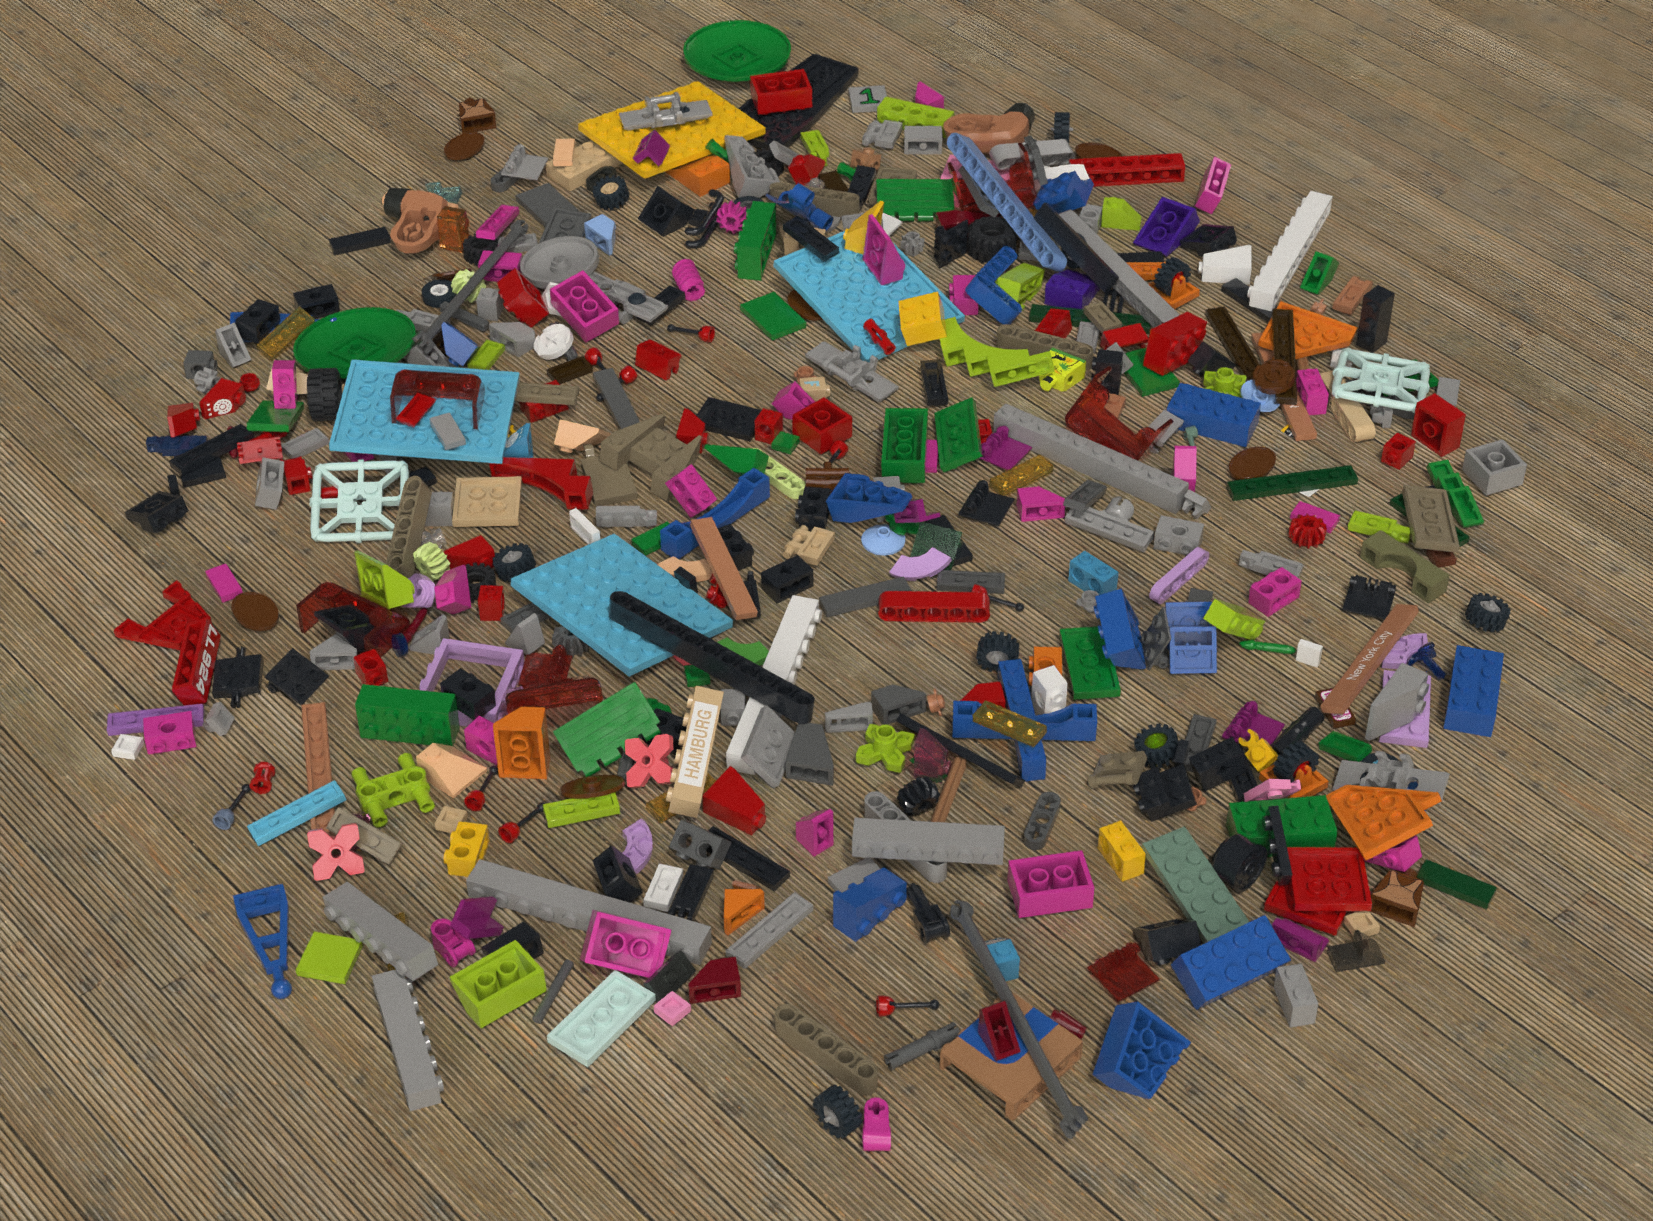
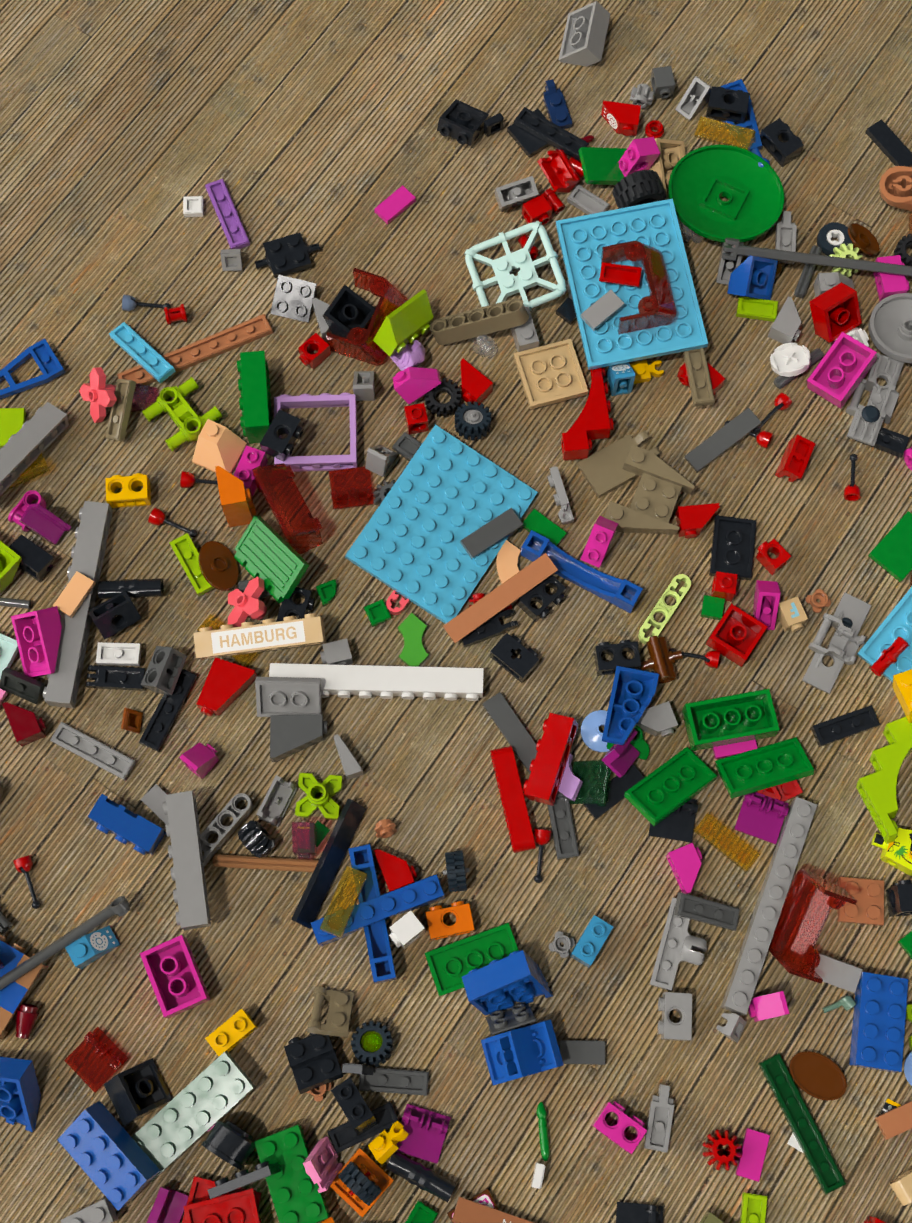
camera: 75 degrees right, 30 degrees up
(108, 407) = (585, 35): none -> light grey slope
(168, 627) = (334, 189): red wing -> none
(169, 732) = (204, 220): dark pink brick -> none
(182, 418) = (580, 95): red slope -> none
(196, 662) = (285, 219): red brick -> none
(255, 611) = (365, 240): reddish brown piece -> none
(399, 644) = (349, 363): clear blue tile -> none
(415, 624) = (378, 367): dark red piece -> none
(431, 561) = (451, 354): yellowish green gear -> none
(449, 818) = (159, 468): tan plate -> none
(570, 370) = (759, 386): dark brown tile -> none
(574, 436) = (661, 423): light nougat slope -> none
(580, 899) = (74, 594): none -> light nougat tile
(583, 527) = (534, 465): white tile -> none
(585, 870) = (134, 588): none -> black axle
(639, 844) = (164, 622): lavender tile -> none
(648, 565) = (491, 533): none -> dark grey tile
(686, 579) = (487, 571): black tile -> none
(711, 657) = (377, 609): black beam -> none
(739, 459) = (662, 574): green slope -> none
(741, 906) = (105, 718): orange slope -> none
(751, 391) = (770, 564): none -> red brick
(813, 548) = (569, 671): tan plate -> none
(873, 780) = (276, 801): none -> light grey hinge
(894, 699) = (374, 791): dark grey slope -> none
(904, 563) = (551, 759): none -> red brick
(927, 918) = (125, 879): black connector -> none
(957, 493) = (670, 786): none -> green tile
(1043, 829) = (245, 958): dark grey beam -> none
(1179, 575) = (619, 1026): lavender beam -> none
(1234, 620) = (545, 1094): lime brick -> none

